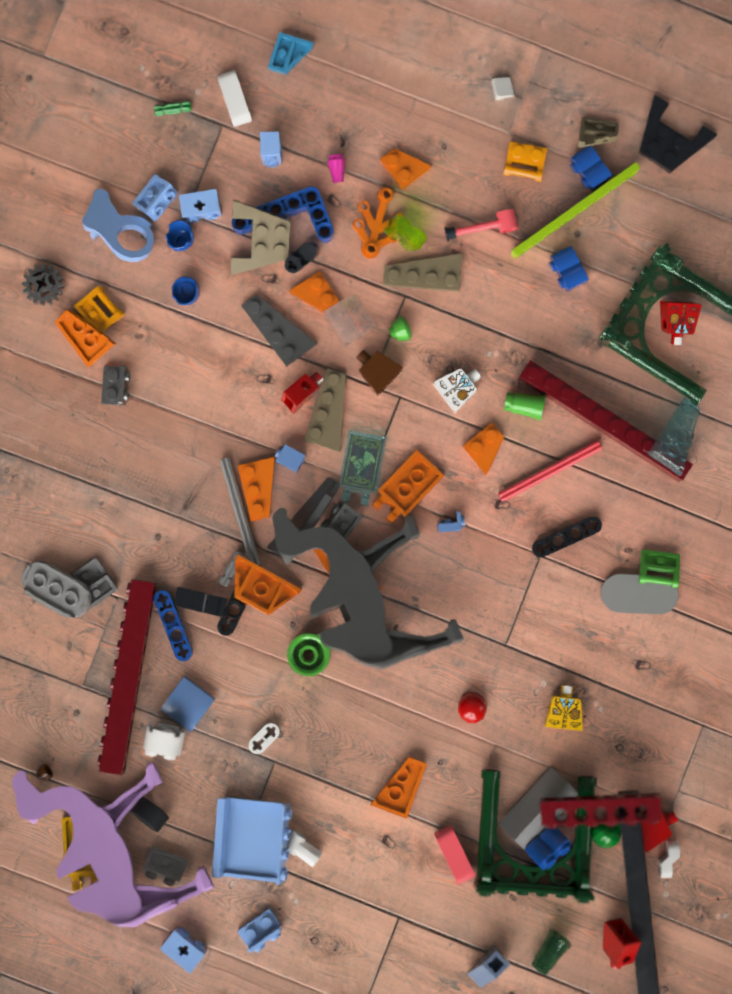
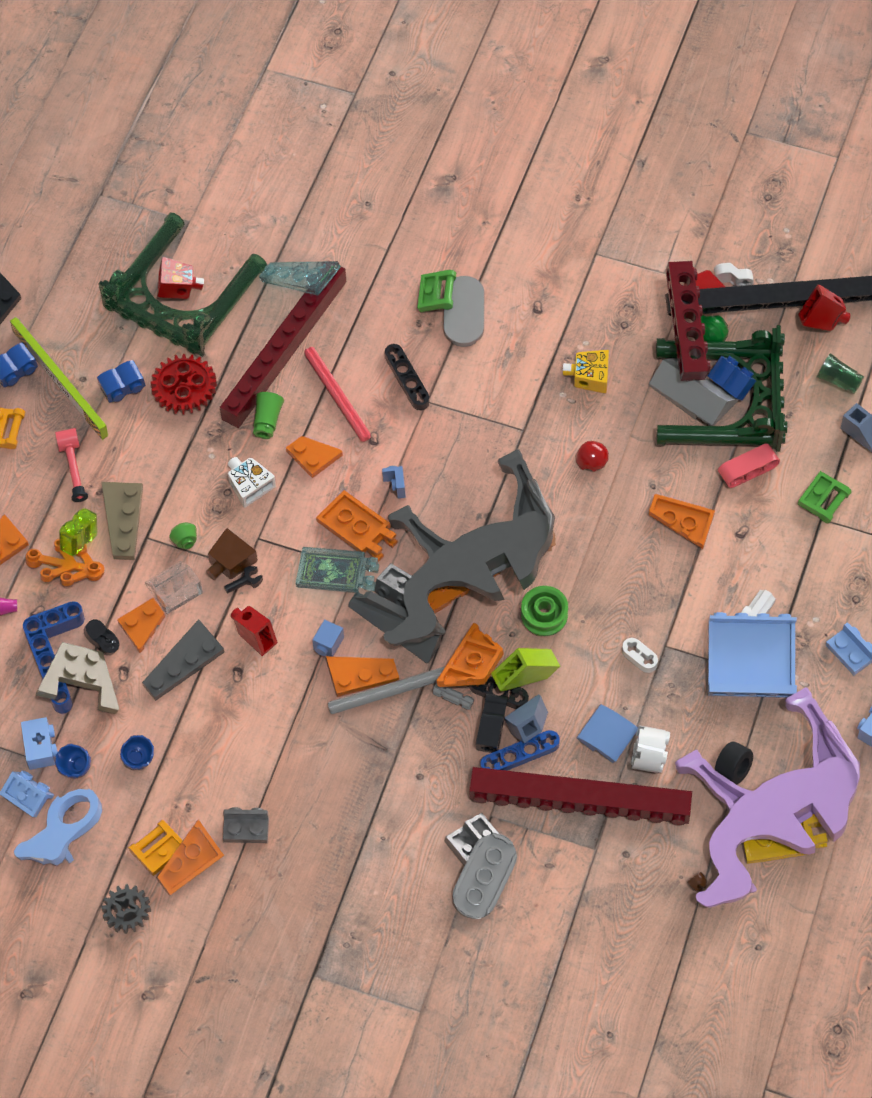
camera: 95 degrees left, 25 degrees down
(164, 866) = (791, 747): flat silver bracket -> none
(200, 634) = (528, 719): none -> sand blue slope
(247, 634) = (525, 667): none -> lime slope
(327, 416) = (279, 606): dark tan wing -> none
(355, 383) = (246, 579): none -> black bar
(421, 916) = (818, 493): none -> bright green plate
(576, 315) = (183, 384): none -> red gear

